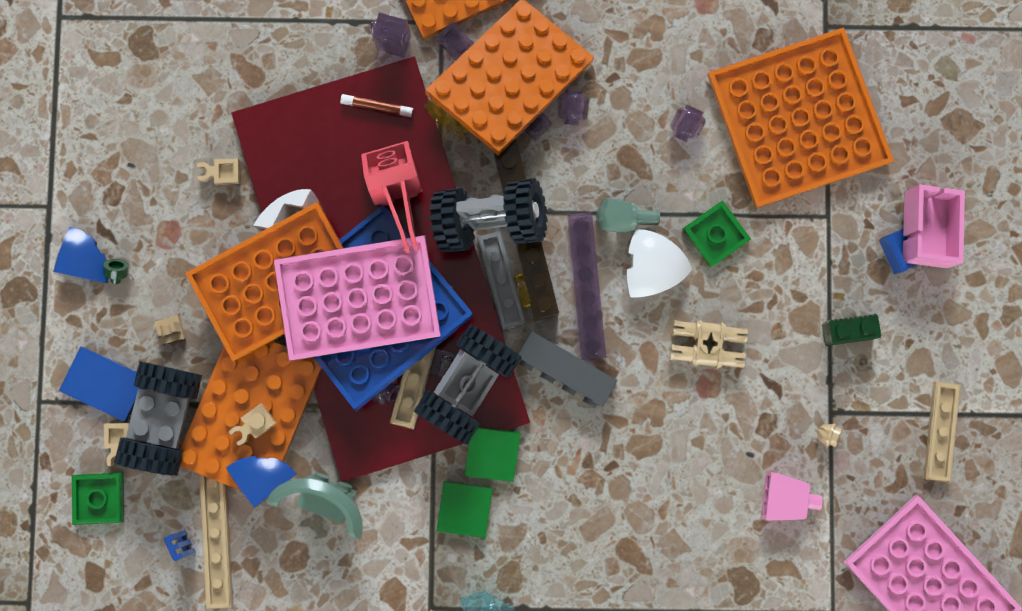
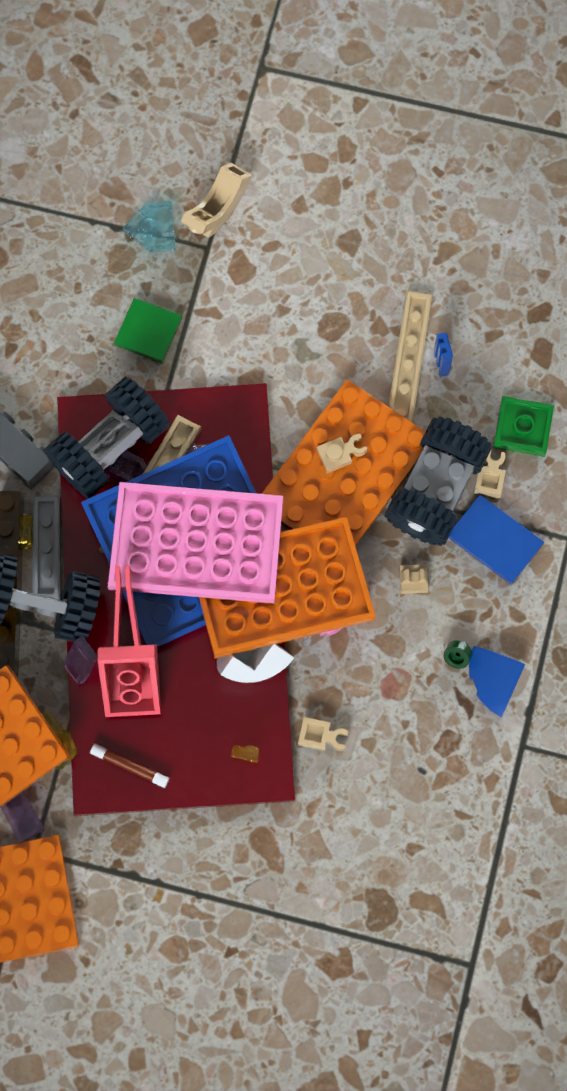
camera: 165 degrees left, 10 degrees down
(259, 476) = (344, 398): blue brick -> none
(279, 137) = (249, 753): none -> clear yellow tile
(323, 498) = (282, 366): sand green piece -> none
(391, 34) = (91, 837): clear purple brick -> none
(438, 177) = (80, 660): none -> clear purple tile
(492, 454) = (102, 371): green tile -> none

